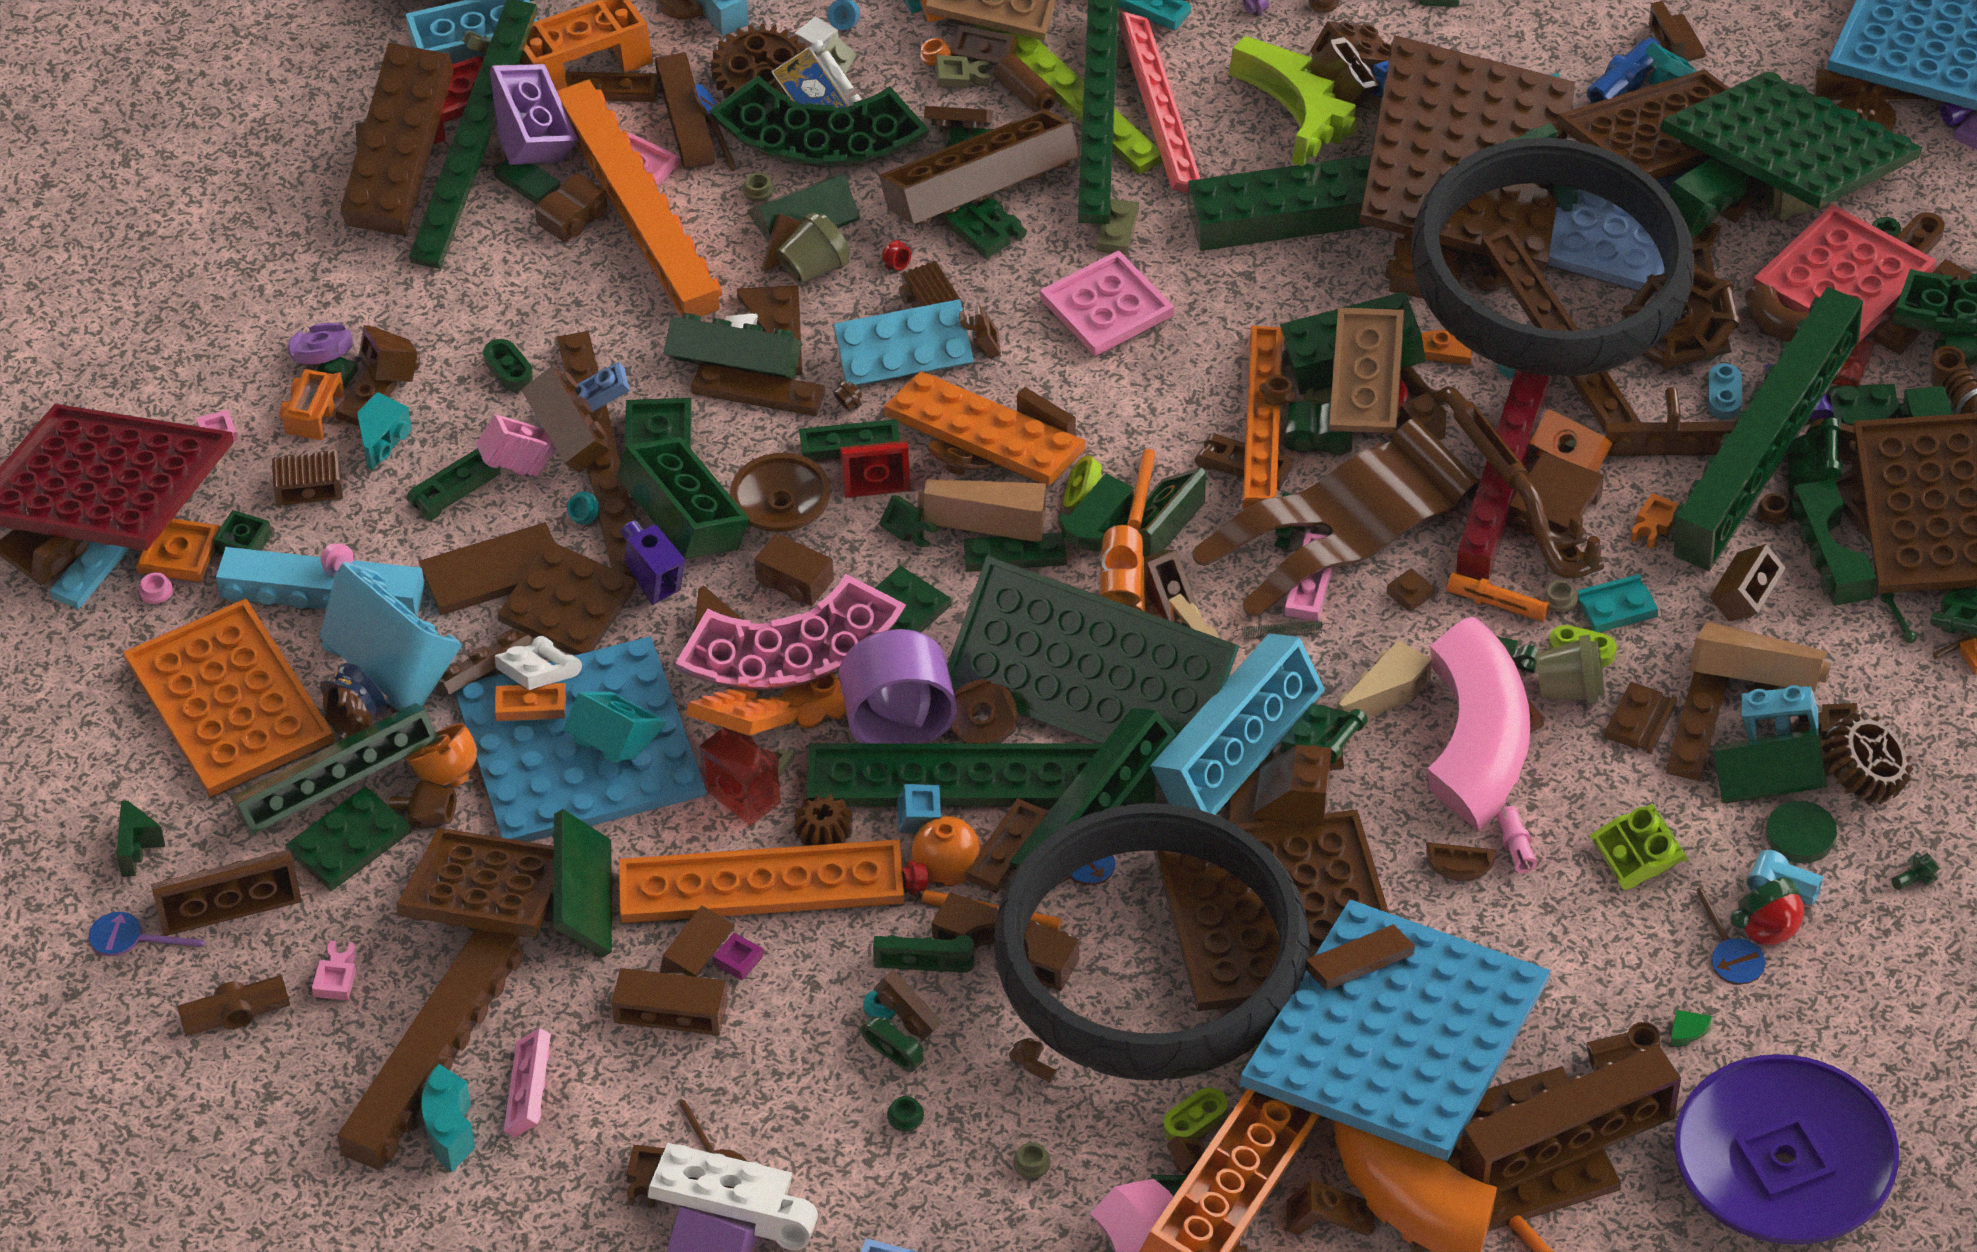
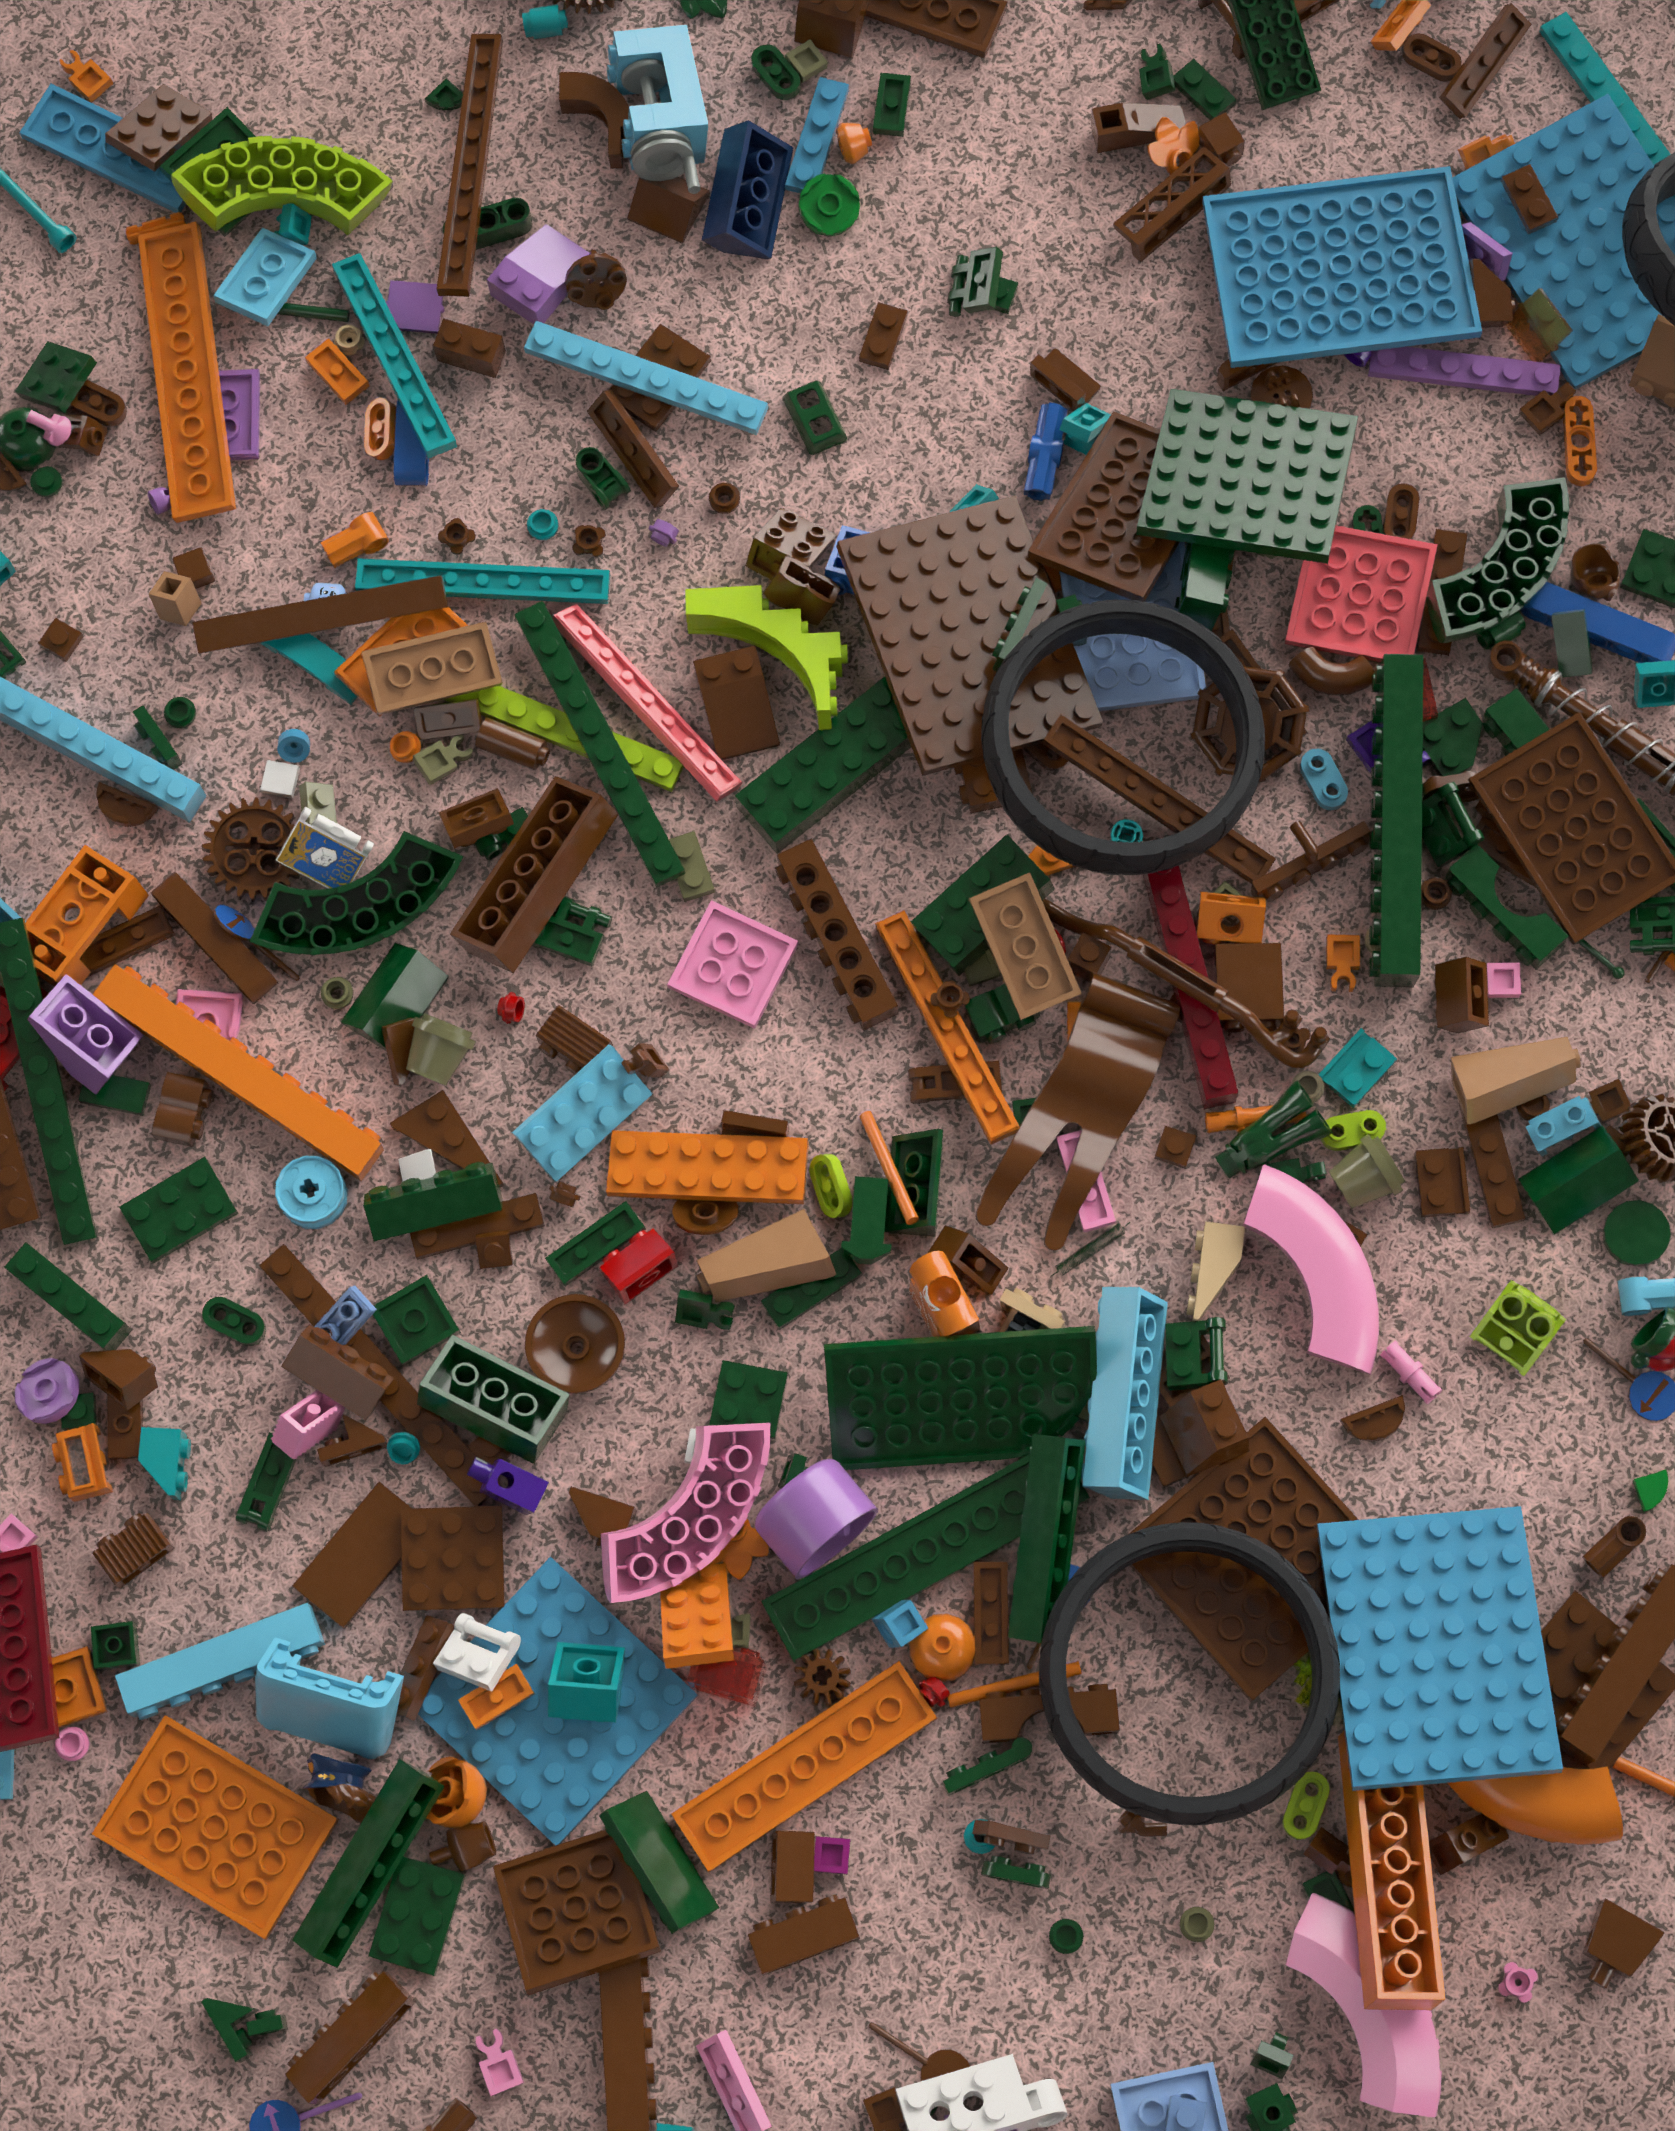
camera: 25 degrees left, 25 degrees up
(163, 851) = (266, 2023): none -> dark green plate
(334, 556) = (230, 1643): bright pink plate -> none
(386, 288) = (68, 1298): none -> dark green arch
(520, 276) = (178, 1210): none -> dark green plate
(545, 488) = (361, 1441): none -> reddish brown slope
(637, 305) = (328, 1199): none -> medium azure wheel
(760, 407) = (494, 1249): none -> reddish brown plate
(794, 569) = (633, 1418): reddish brown brick -> none
(992, 697) = (912, 1486): reddish brown plate -> none
(1210, 318) = (806, 860): none -> reddish brown brick
(1236, 129) = (736, 702): none -> reddish brown slope
(1359, 957) = (1372, 1597): reddish brown tile -> none
(1516, 606) = (1258, 1146): none -> dark green piece
(1795, 594) = (1503, 980): none -> bright pink plate

